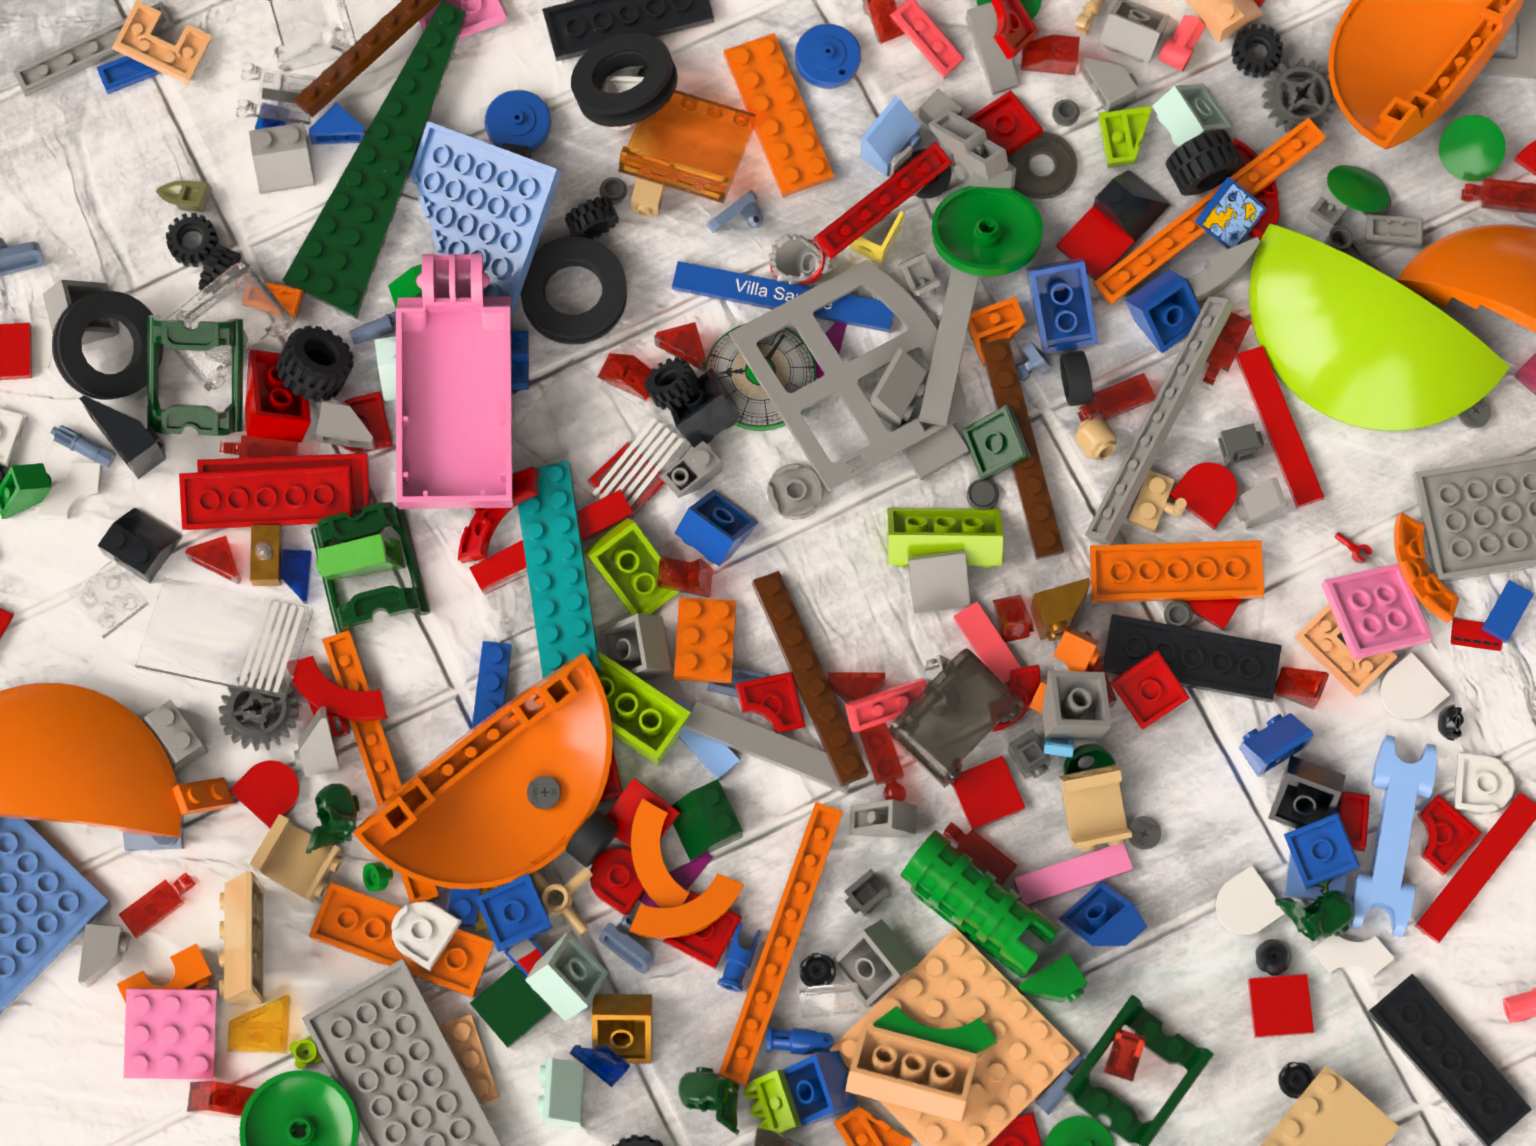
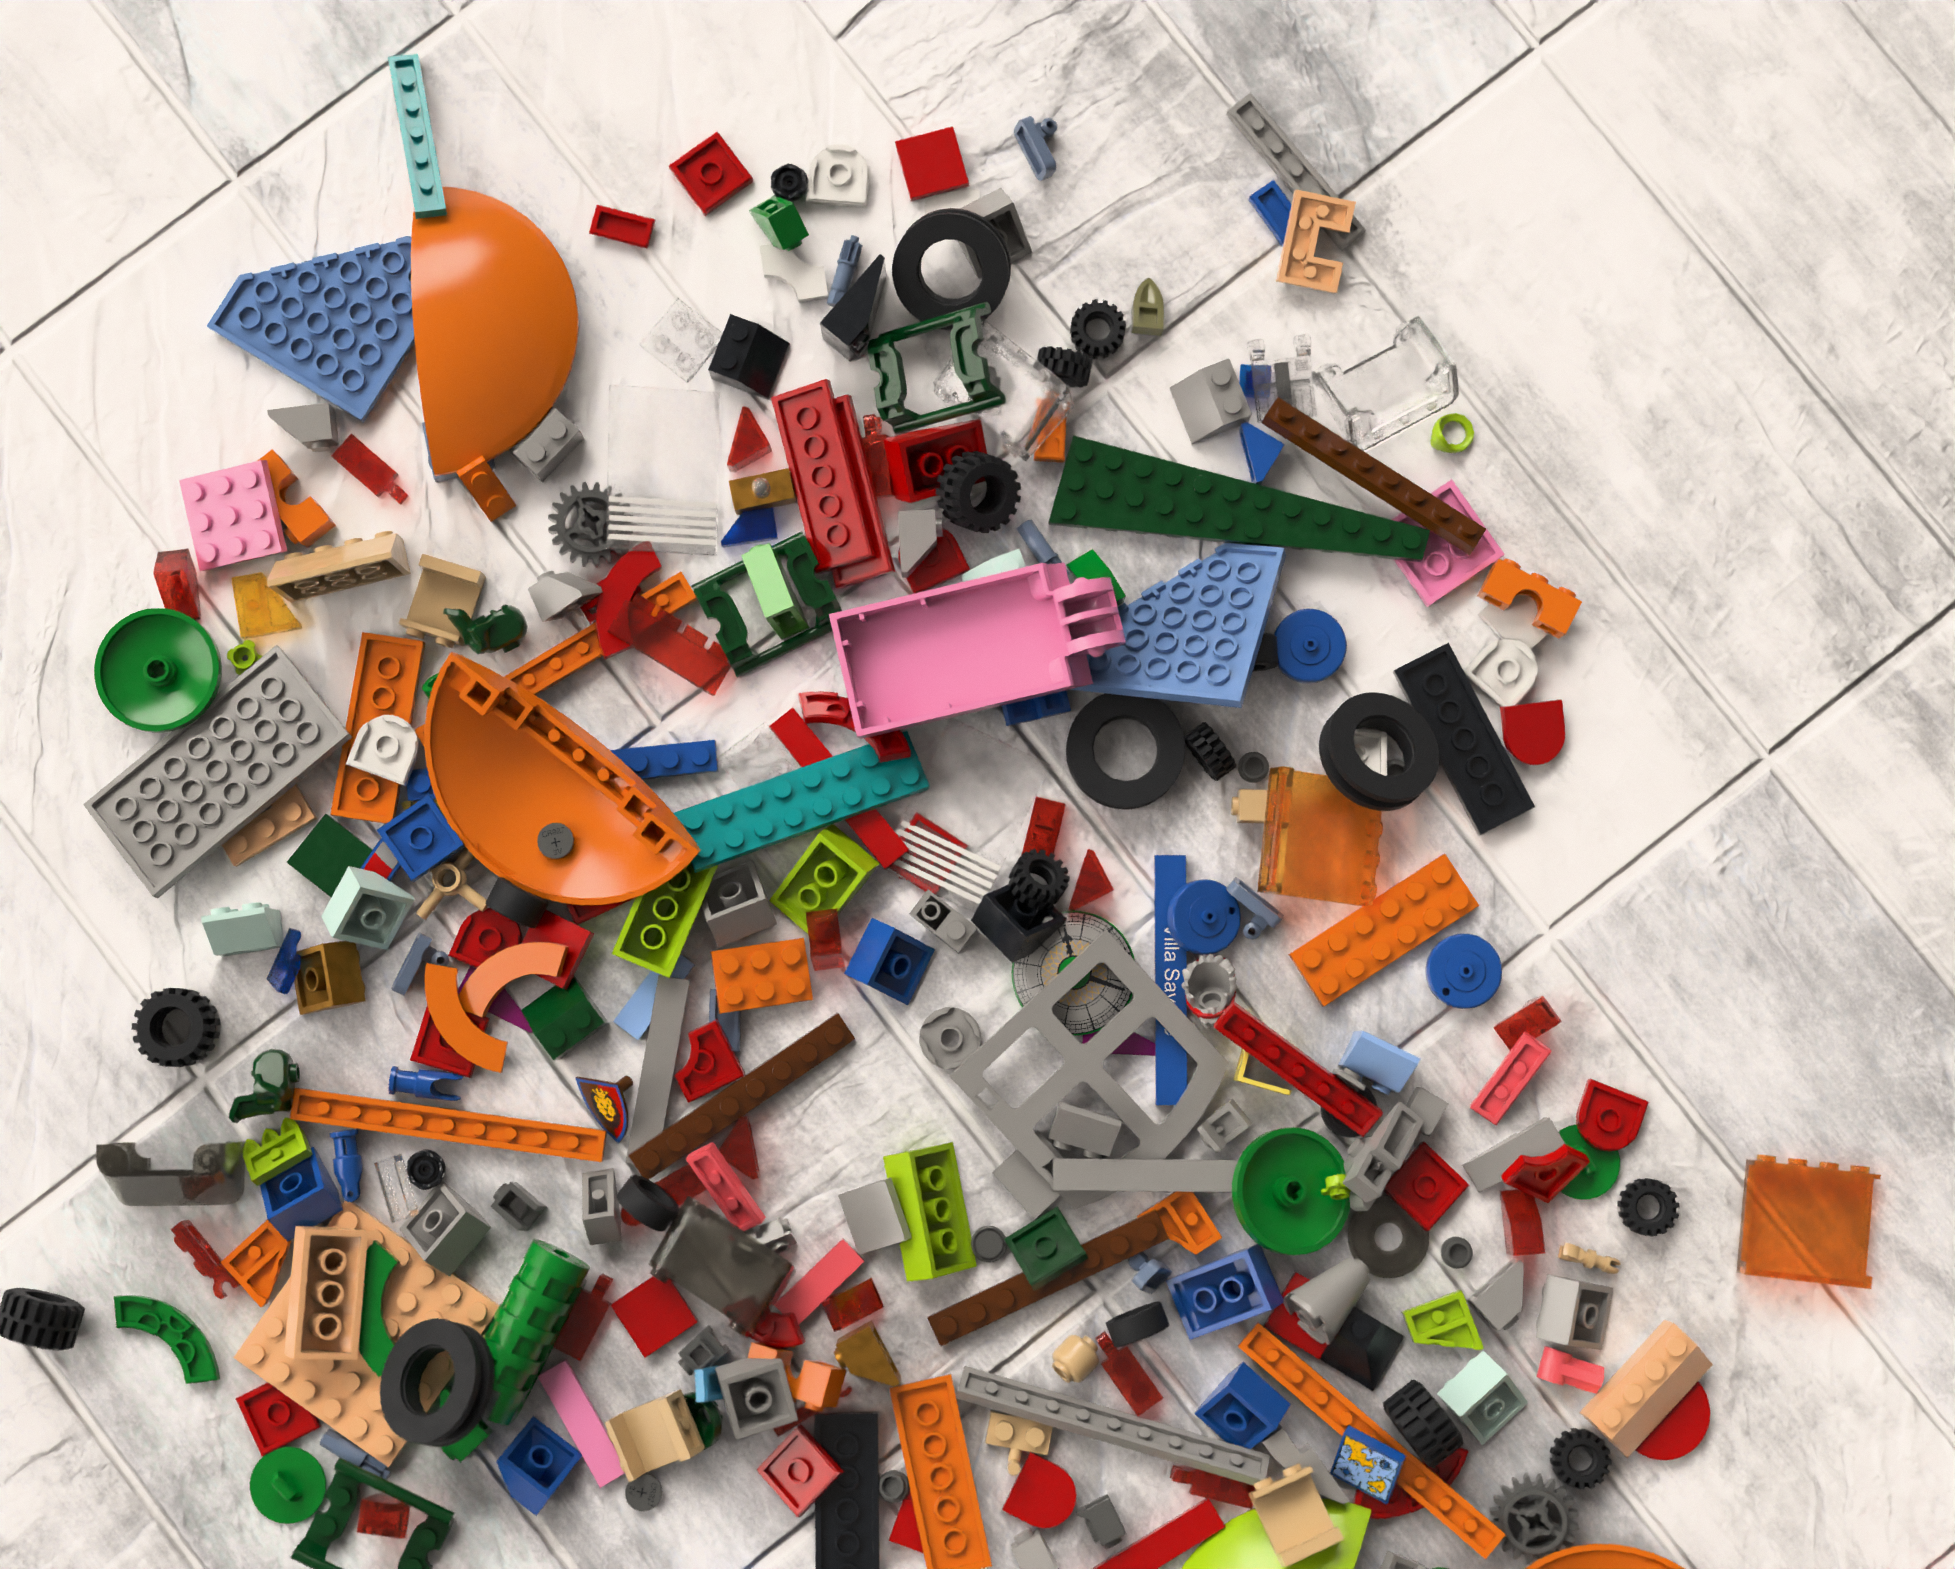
camera: 75 degrees right, 10 degrees up
(268, 790) = (510, 554): red tile -> none
(393, 656) = (662, 642): none -> clear red windscreen
(735, 255) = (1203, 917): none -> blue wheel
(792, 795) = (607, 1103): none -> shield
(888, 767) = (648, 1203): none -> black tyre
(987, 1008) = (470, 1389): none -> black tyre
(990, 191) = (1335, 1187): none -> lime plate
(1086, 218) = (1328, 1299): none -> light grey cone
(1262, 279) = (1294, 1515): none -> tan panel

